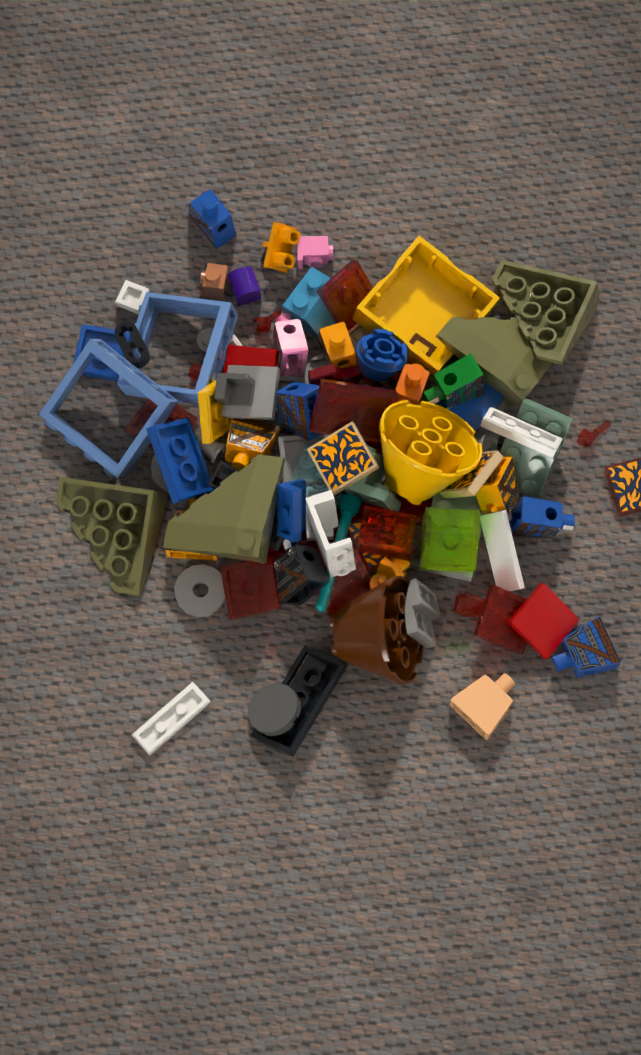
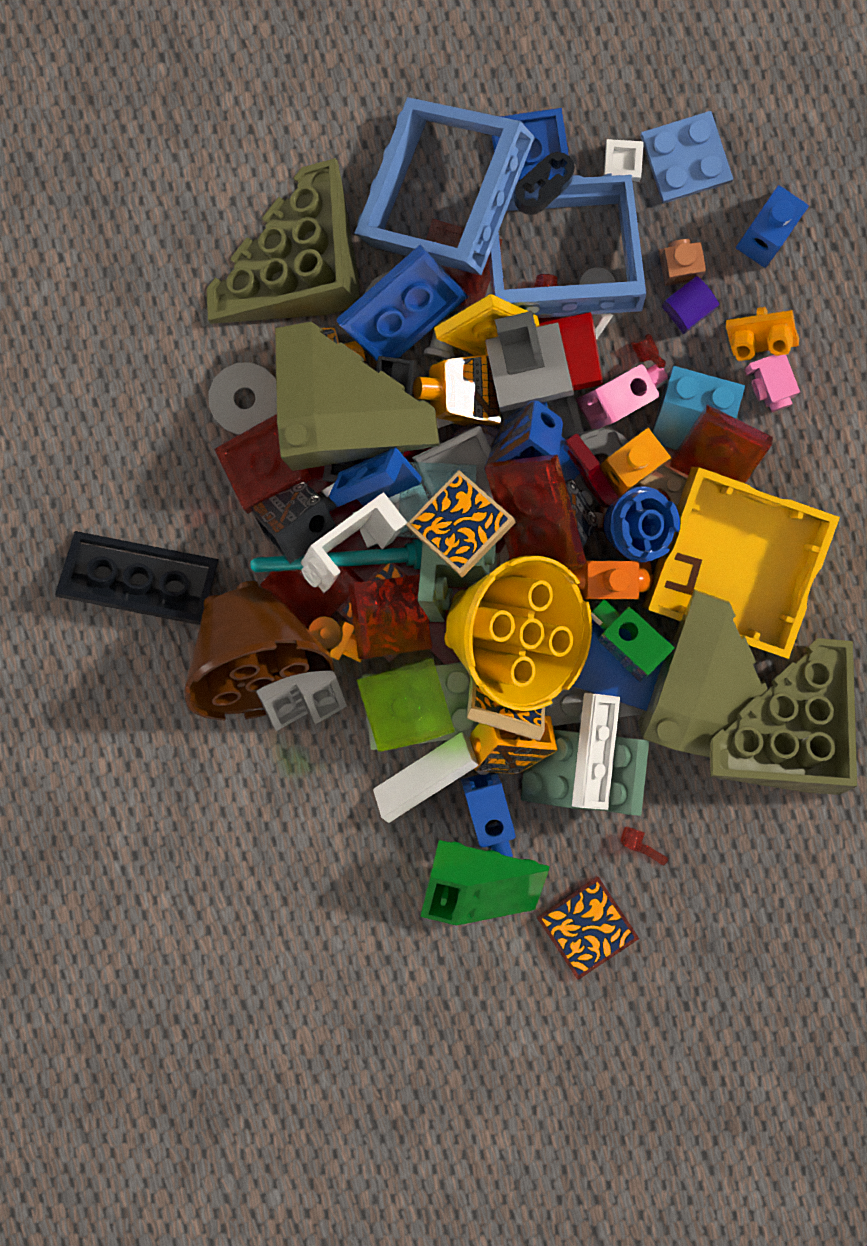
camera: 70 degrees right, 15 degrees up
(145, 258) = (686, 157): none -> medium blue plate
(171, 718) = (62, 422): white tile -> none
(274, 709) = (113, 550): dark grey tile -> none
(468, 604) = (342, 761): clear red cone -> none
(484, 703) = (214, 820): light nougat torso -> none
(493, 619) = (335, 812): clear red plate -> none
(543, 621) = (351, 862): red tile -> none
(585, 540) = (480, 885): none -> green slope
(587, 651) = (330, 932): torso -> none

